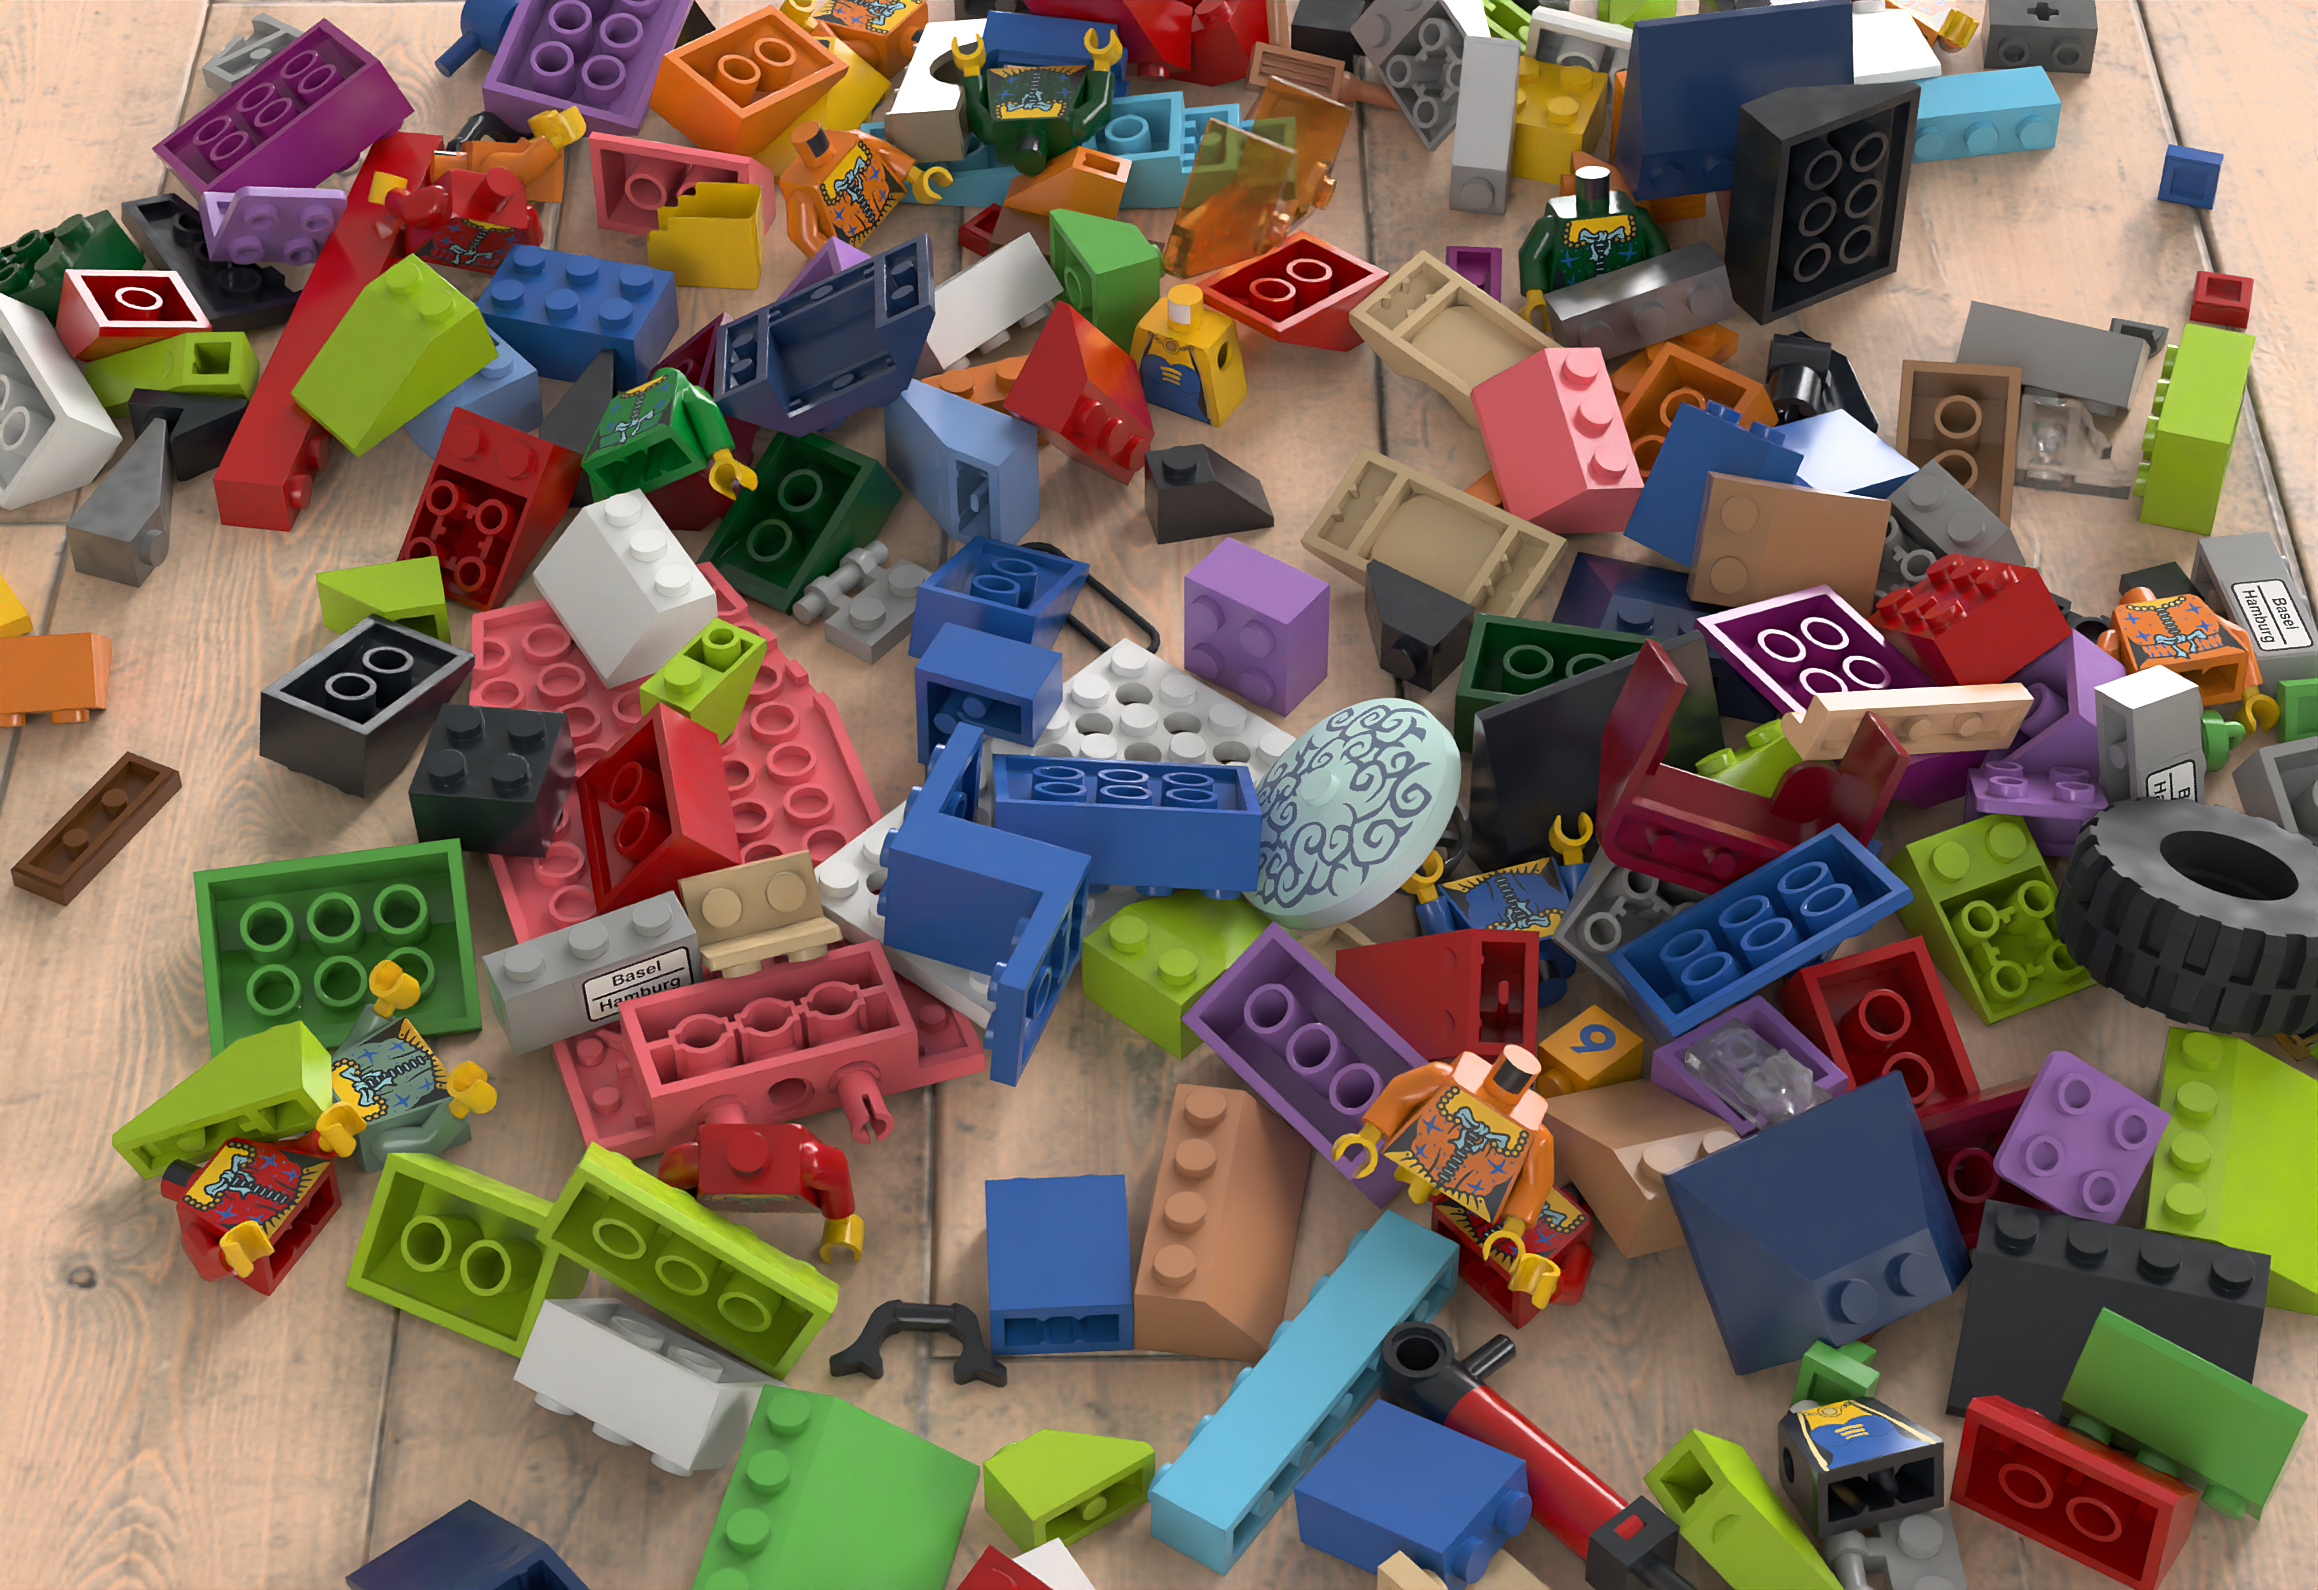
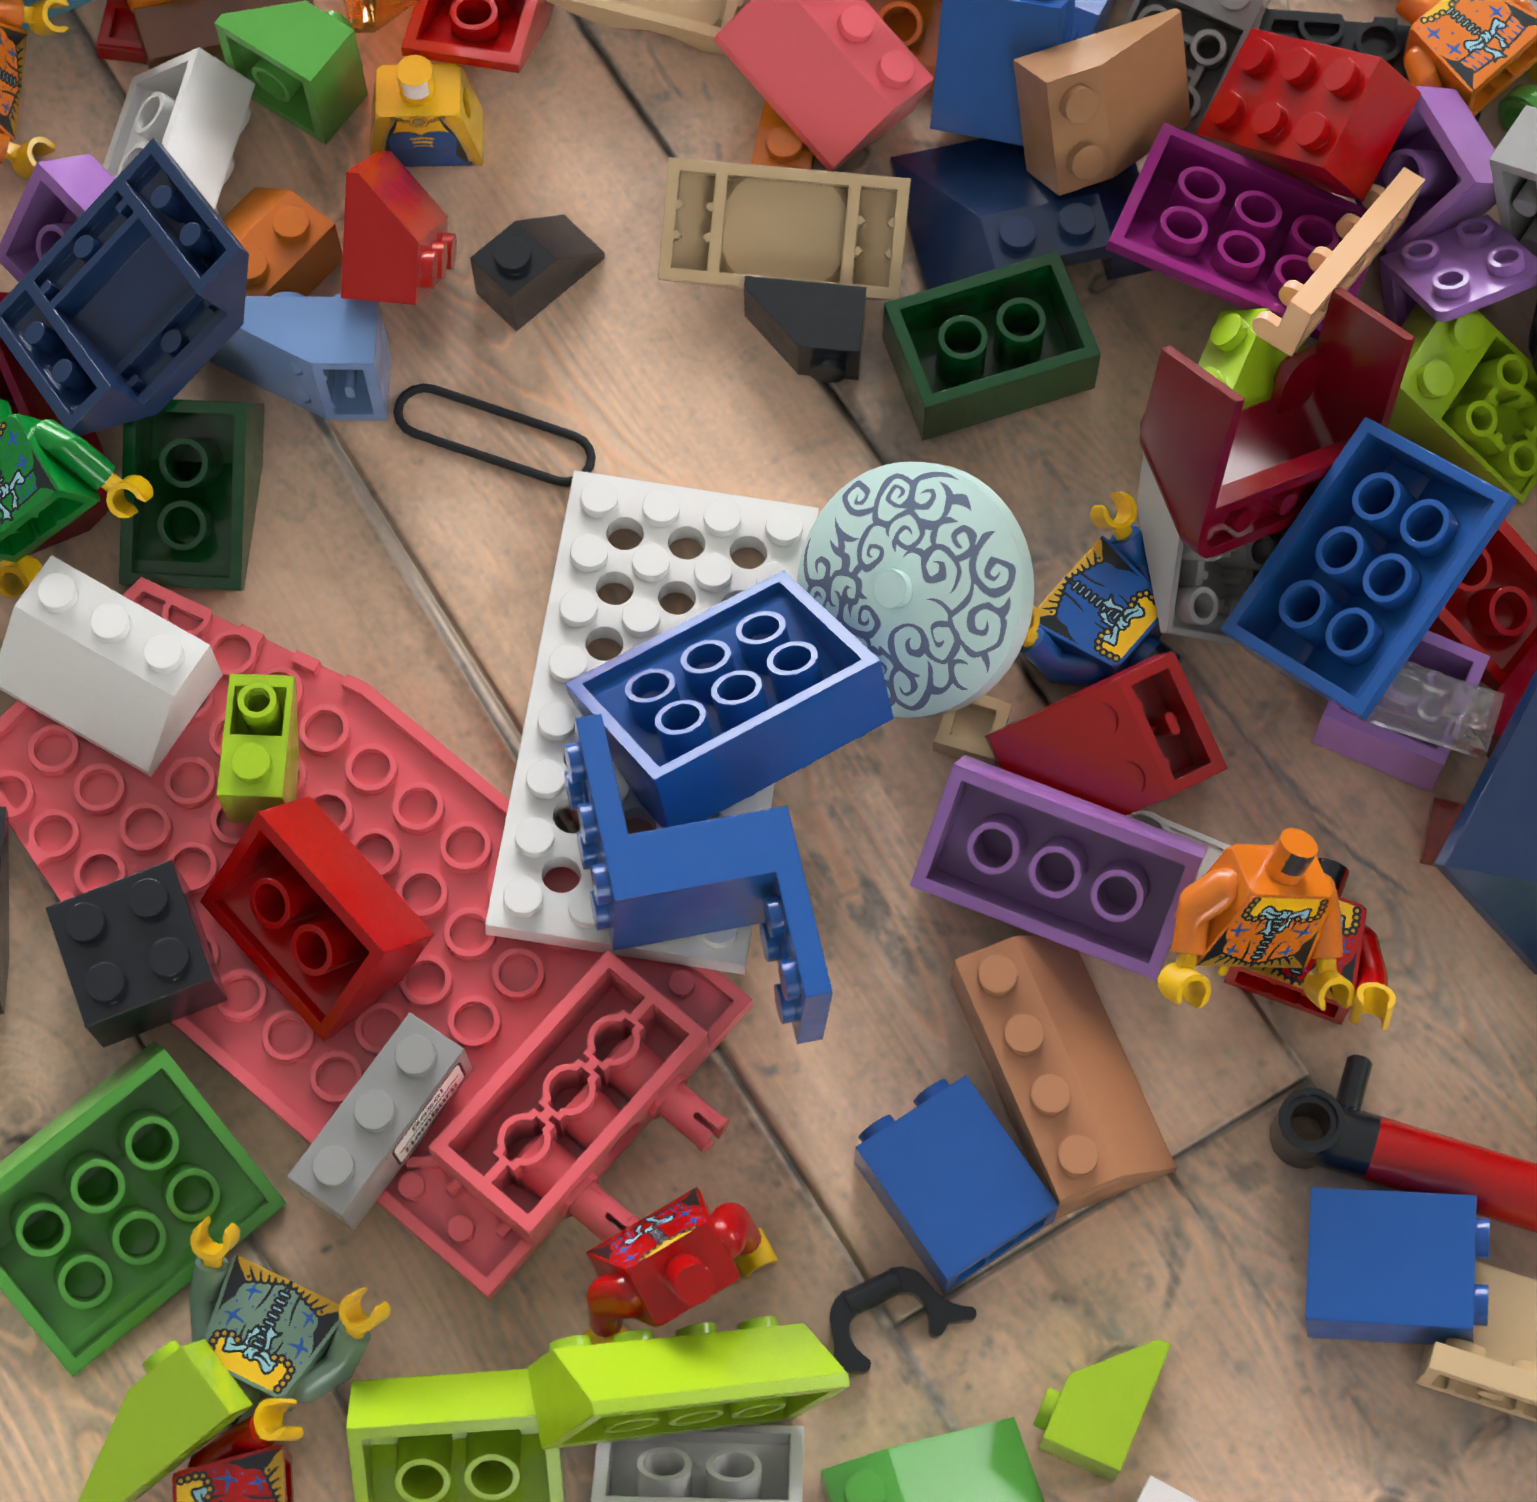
camera: 30 degrees left, 25 degrees up
(758, 914) = (494, 989): tan bracket -> none
(877, 615) = (328, 542): light grey plate -> none
(986, 684) = (515, 617): blue brick -> none
(998, 592) = (438, 492): blue slope -> none
(1163, 957) = (862, 807): lime slope -> none
(1256, 626) = (692, 408): medium lavender brick -> none
(1299, 1393) = (1231, 1198): medium azure brick -> none
(1544, 754) = (1089, 430): black slope -> none
(1588, 1055) = (1251, 732): light orange brick -> none
(1619, 1146) = (1370, 813): medium nougat slope -> none

